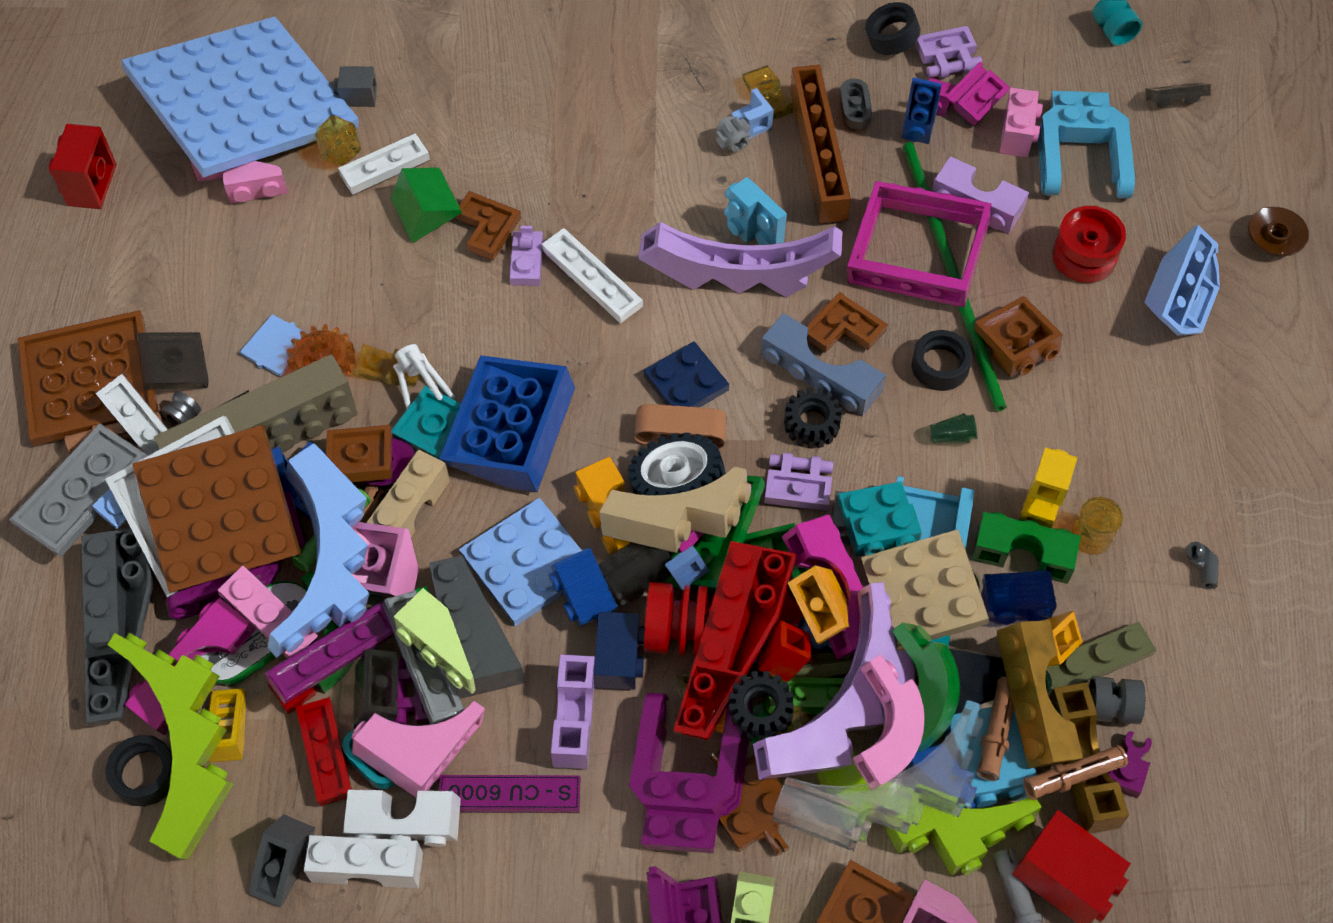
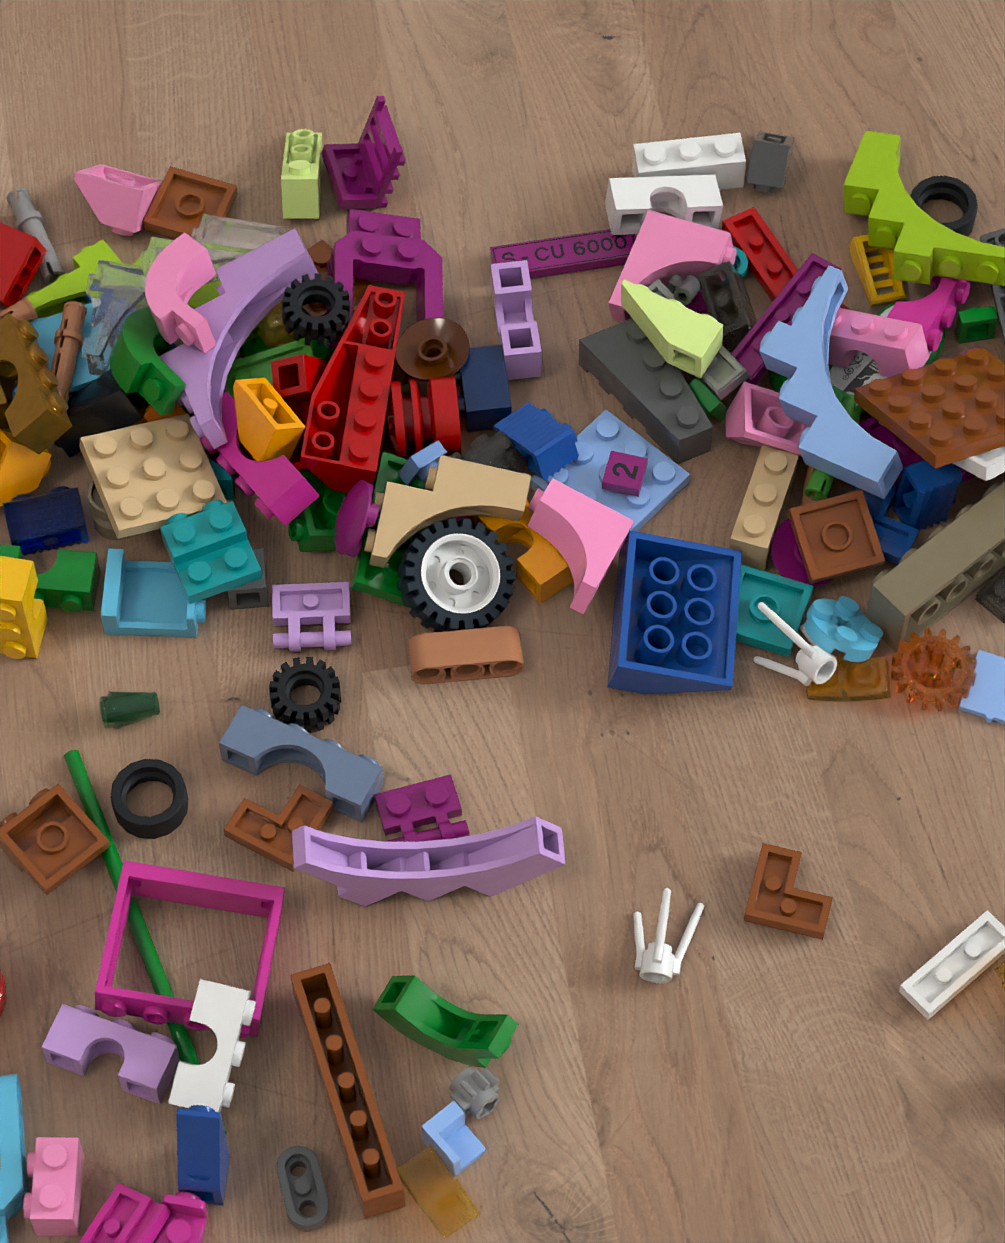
camera: 170 degrees right, 0 degrees up
(160, 639) = (976, 324): none -> green plate
(366, 386) = (842, 627): none -> medium azure plate
(408, 704) = (684, 289): none -> dark grey arm
(423, 201) = (875, 905): green slope -> none
(515, 545) = (624, 473): none -> magenta tile
(526, 257) = (719, 861): lavender plate -> none
(560, 472) = (583, 533): none -> bright pink arch
(586, 198) = (657, 962): none -> white plant
(592, 275) = (624, 842): white plate -> none
(658, 660) = (428, 339): none -> reddish brown dish
(686, 378) = (471, 725): dark blue plate -> none
(733, 165) = (443, 1026): none -> green arch
(736, 328) = (422, 805): none -> magenta plate
(754, 214) = (424, 945): medium azure plate -> none
(754, 513) = (353, 517): none -> magenta dish
(907, 163) = (224, 1011): none -> white arch

